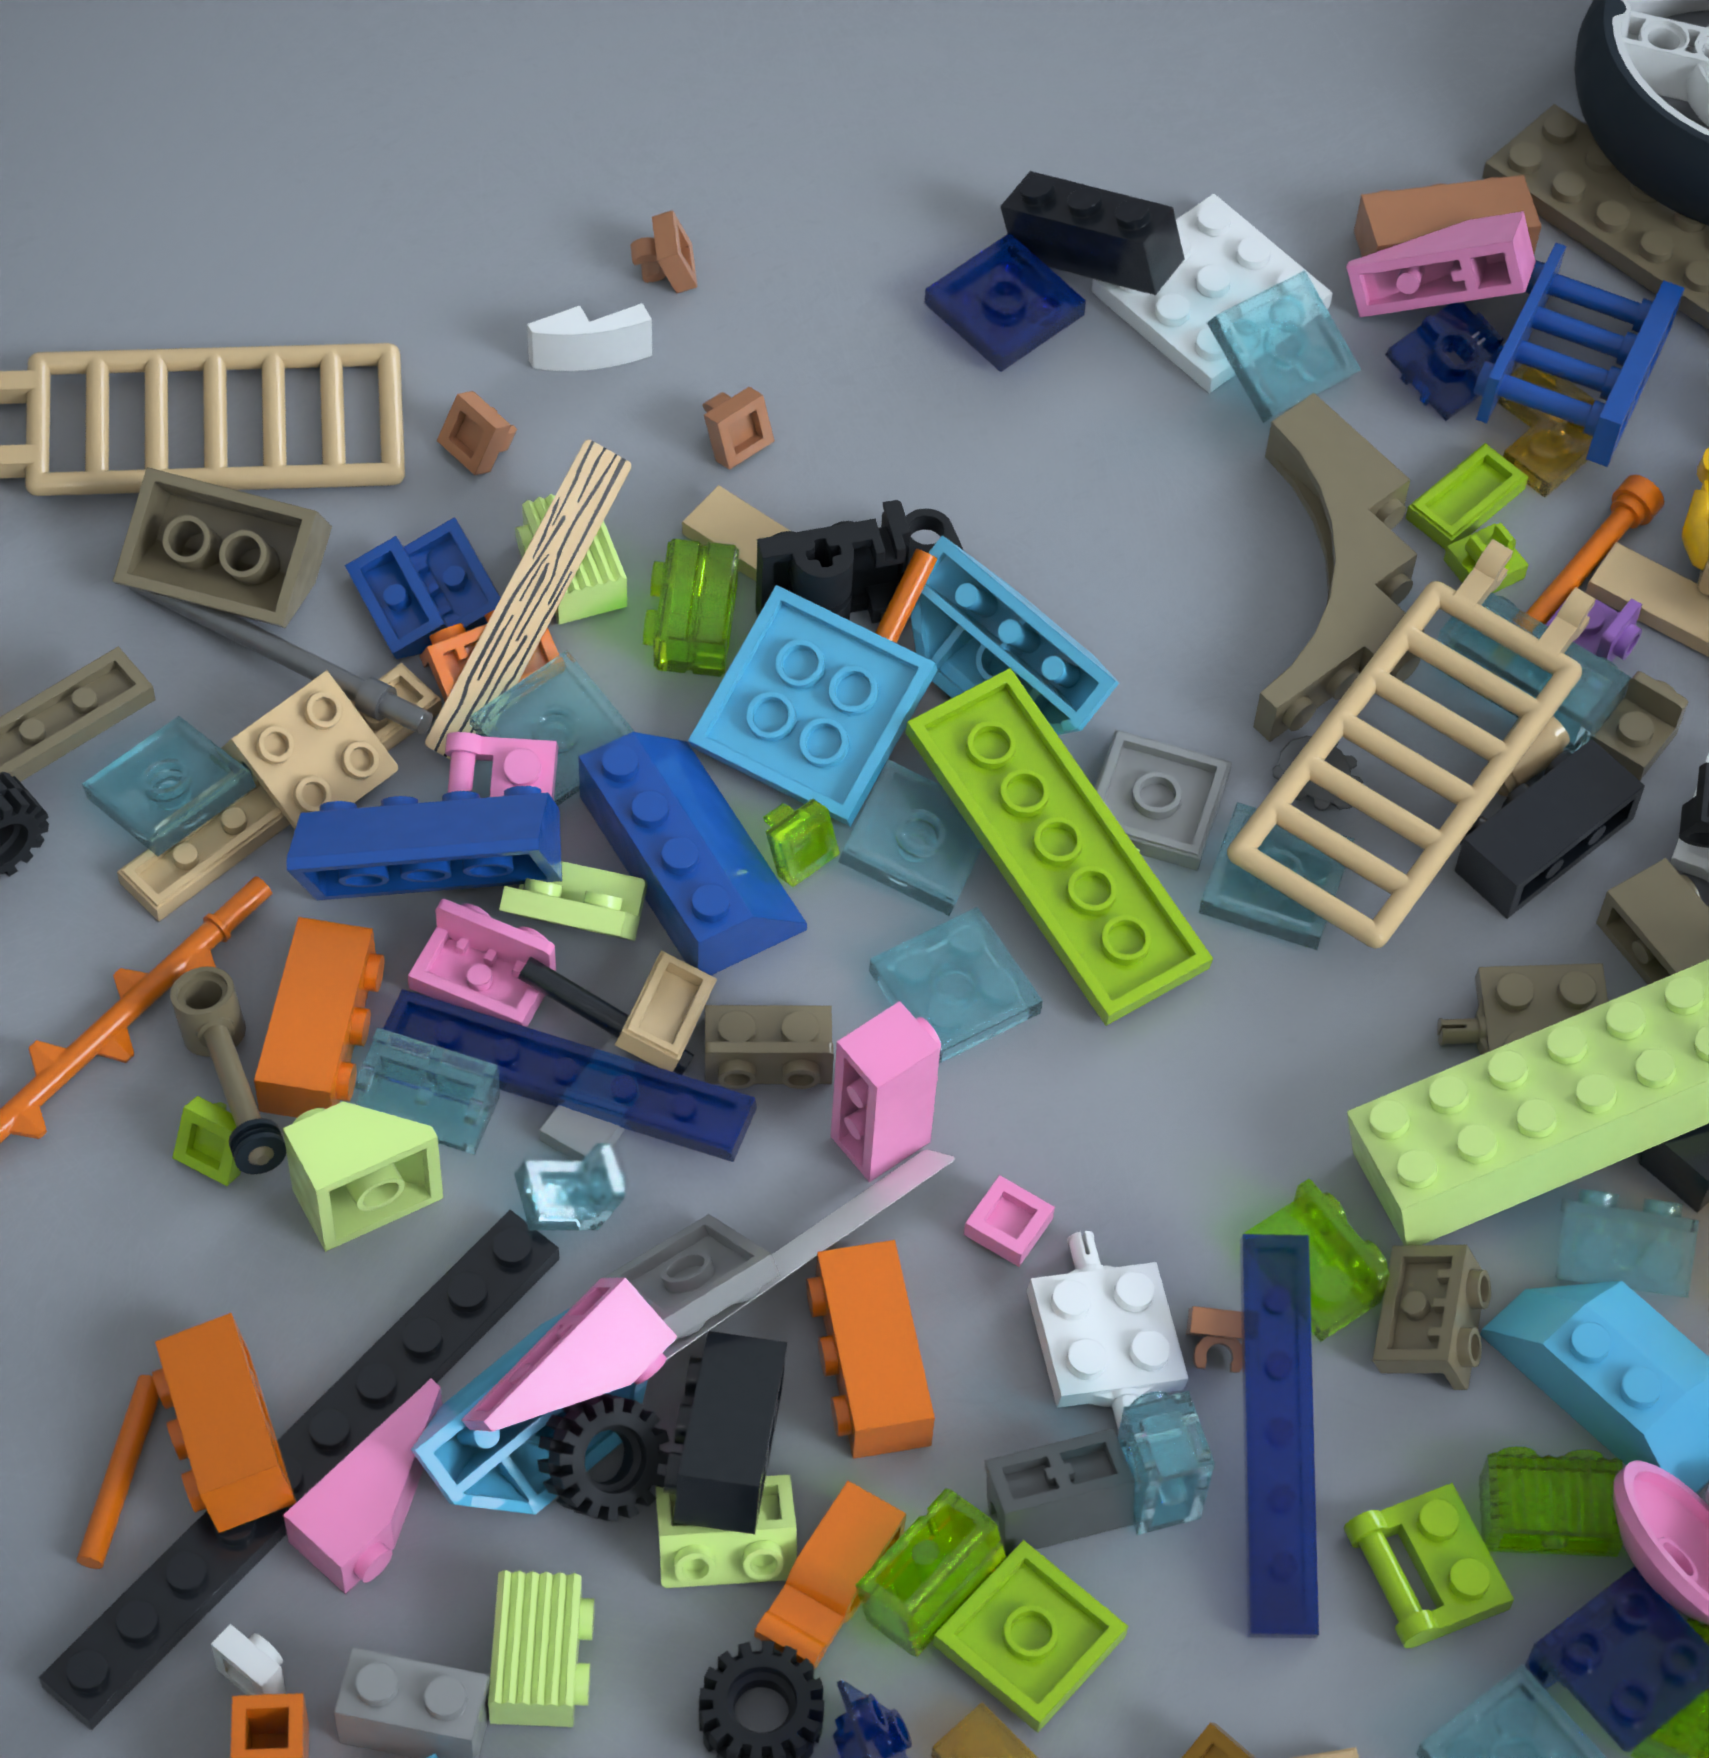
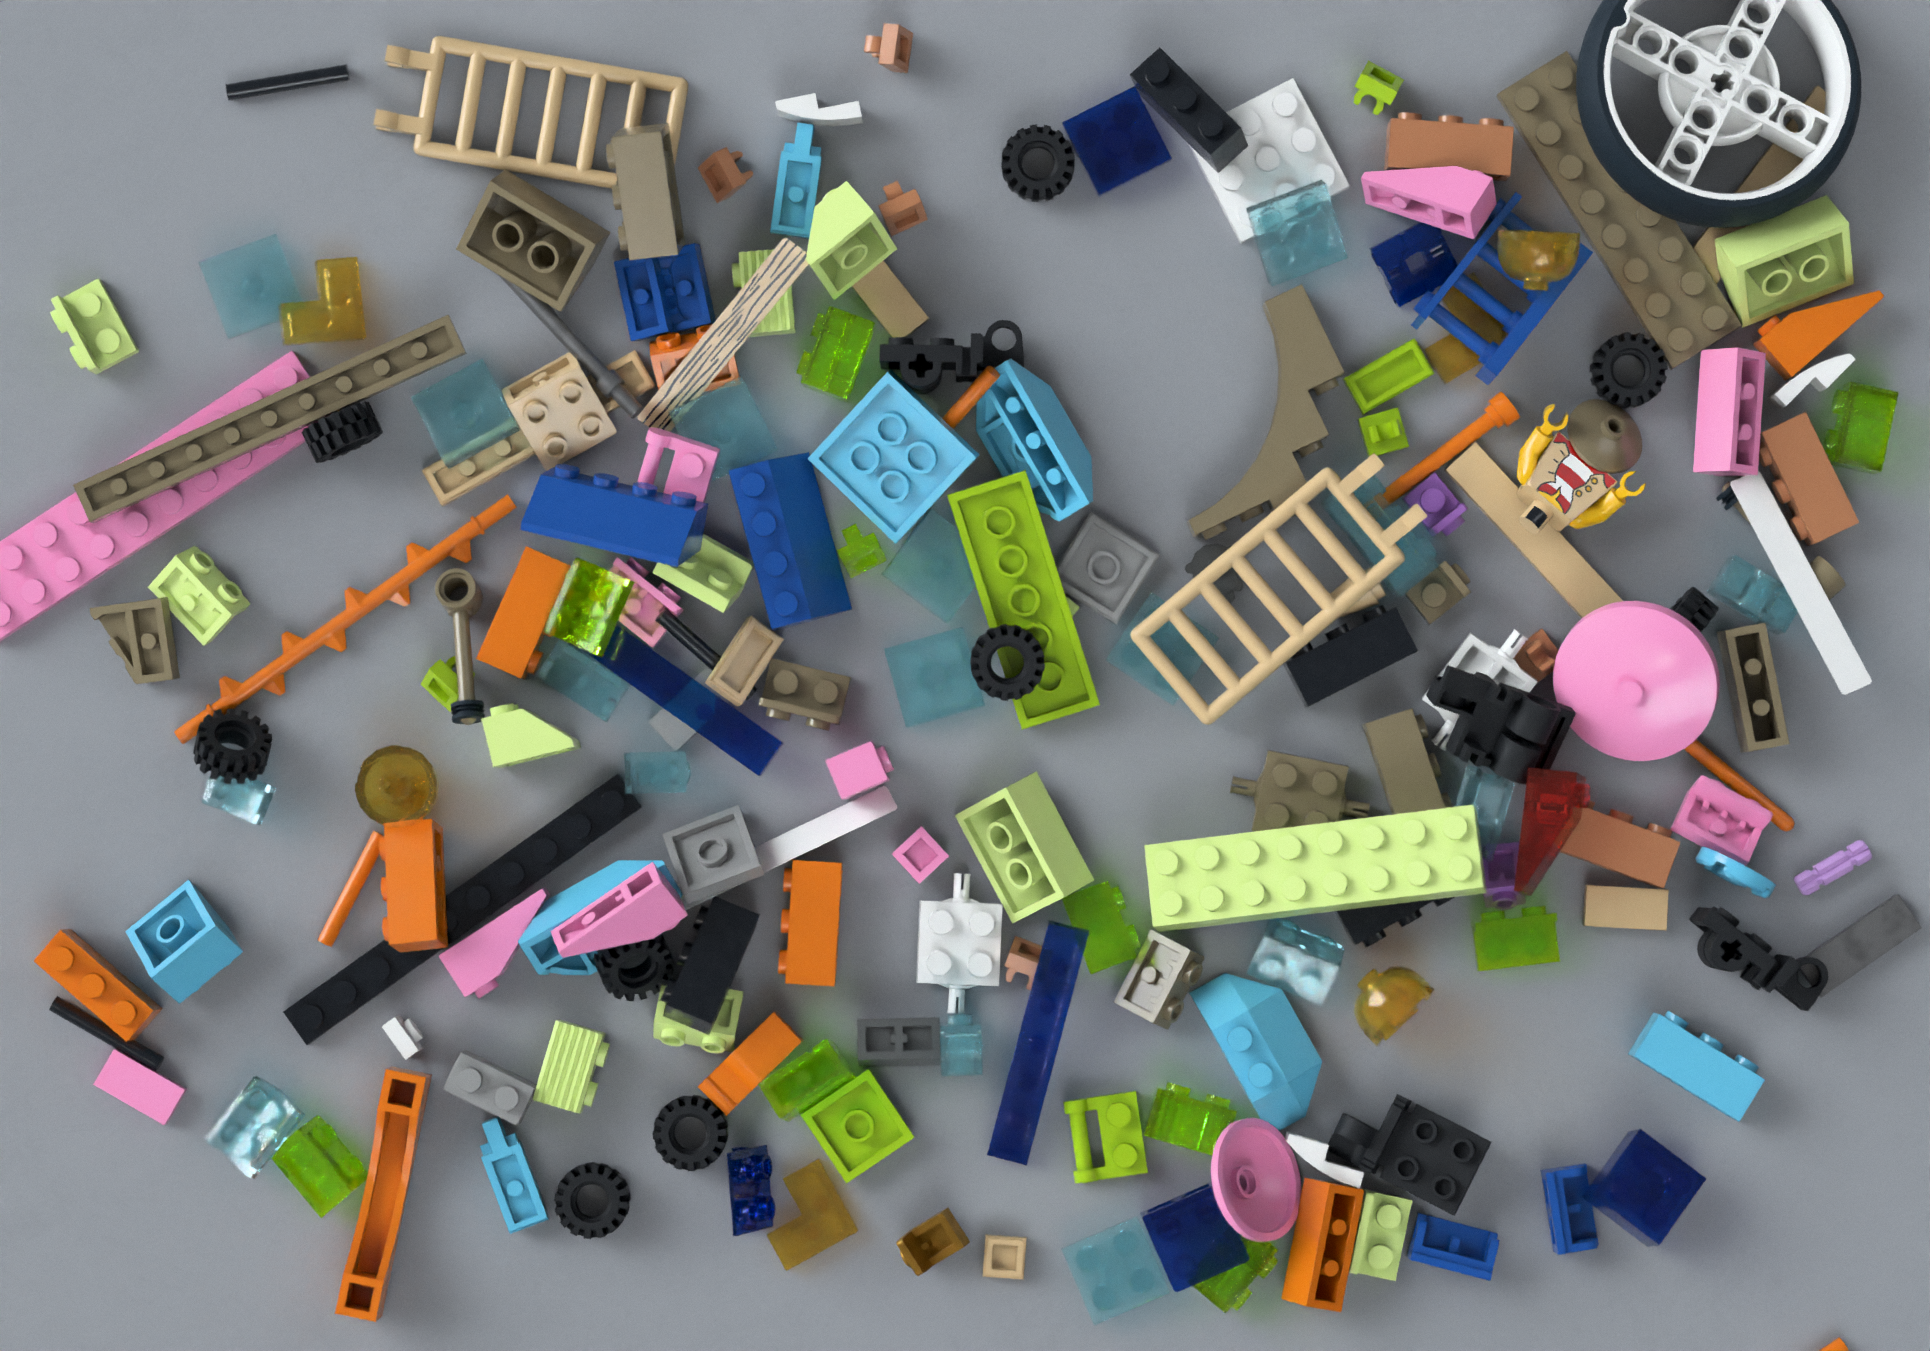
camera: 20 degrees right, 30 degrees up
(166, 1279) = (397, 787): none -> clear yellow cylinder
(373, 441) = (646, 191): none -> dark tan brick
(412, 972) = (588, 606): none -> clear neon green bracket
(579, 411) = (797, 185): none -> medium azure hinge
(676, 449) = (845, 240): none -> yellowish green slope
(906, 319) = (1042, 138): none -> black tyre
(1069, 882) = (1002, 687): none -> black tyre
(1162, 1174) = (1024, 847): none -> yellowish green slope
(1327, 177) = (1379, 84): none -> lime tile
(1617, 277) = (1537, 256): none -> clear yellow cylinder

